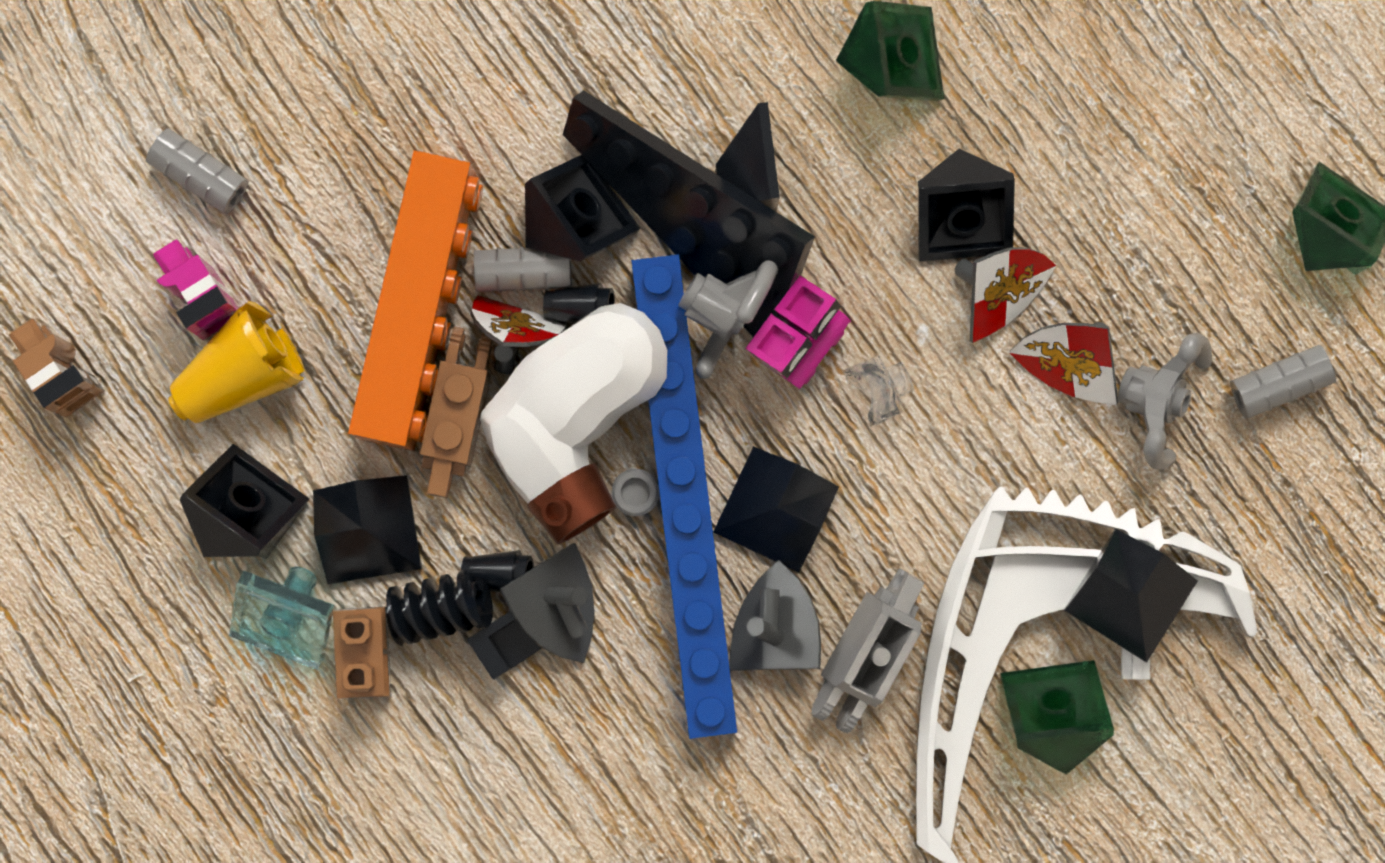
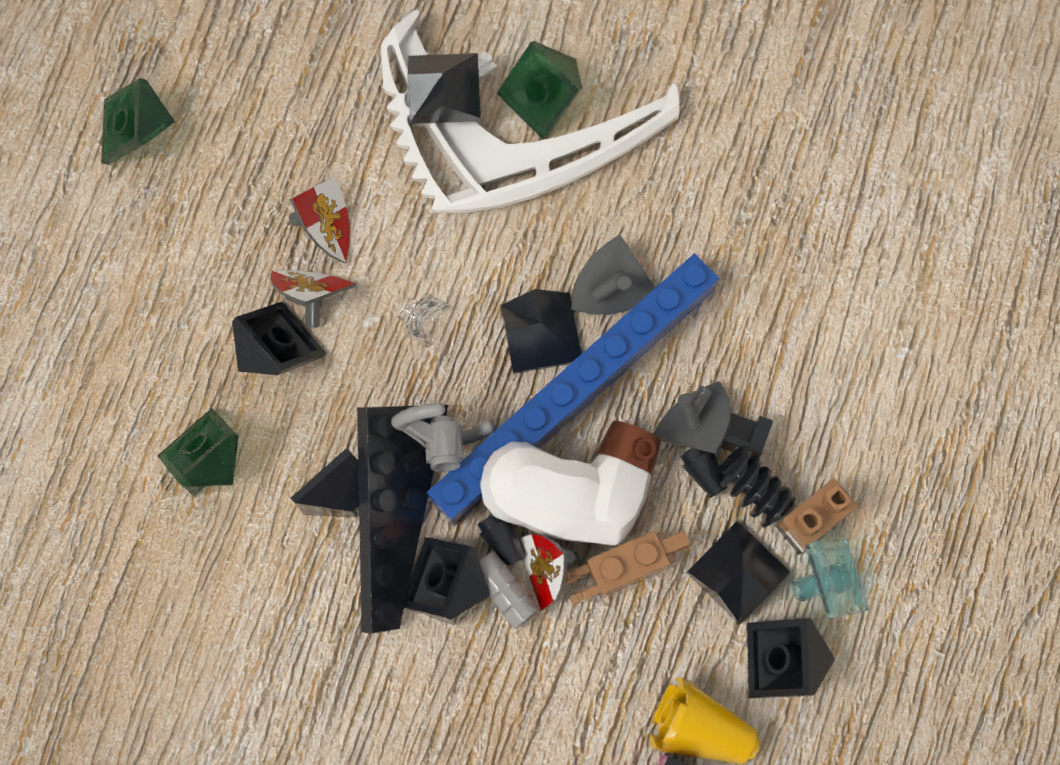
camera: 125 degrees left, 10 degrees down
(415, 301) = (577, 638): orange brick -> none
(635, 492) = (592, 423): light grey tile -> none
(809, 332) = (418, 381): dark pink hips -> none
(871, 651) = (586, 214): light grey hinge -> none
(1163, 395) = (310, 153): light grey piece -> none
(1283, 381) = (252, 93): light grey axle -> none

